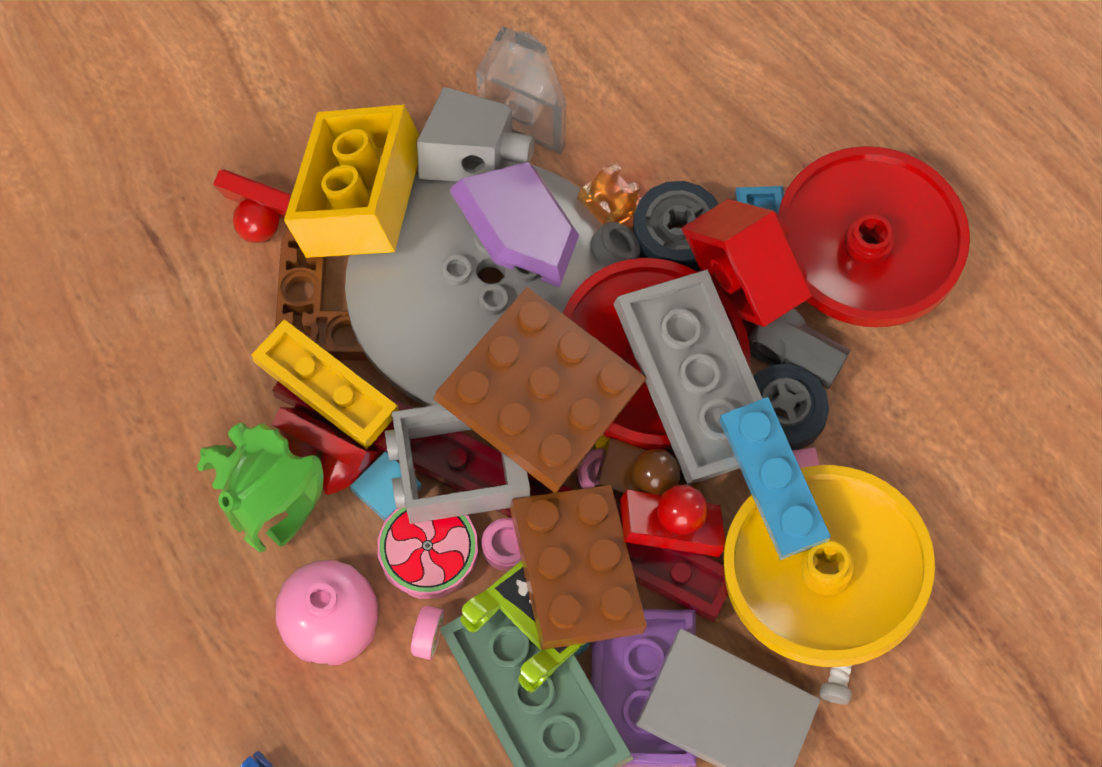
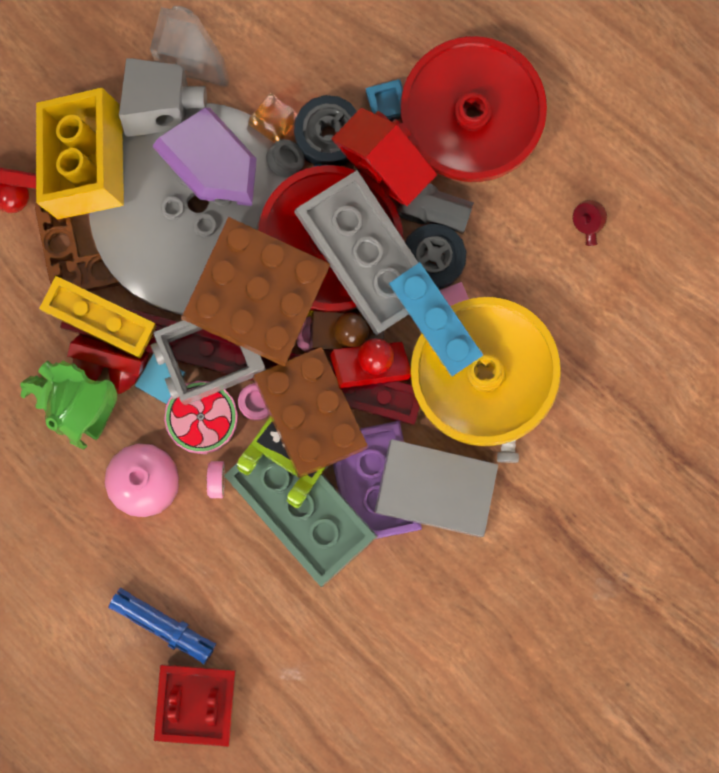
camera: 10 degrees left, 15 degrees up
(1001, 404) = (589, 219): none -> dark red piece

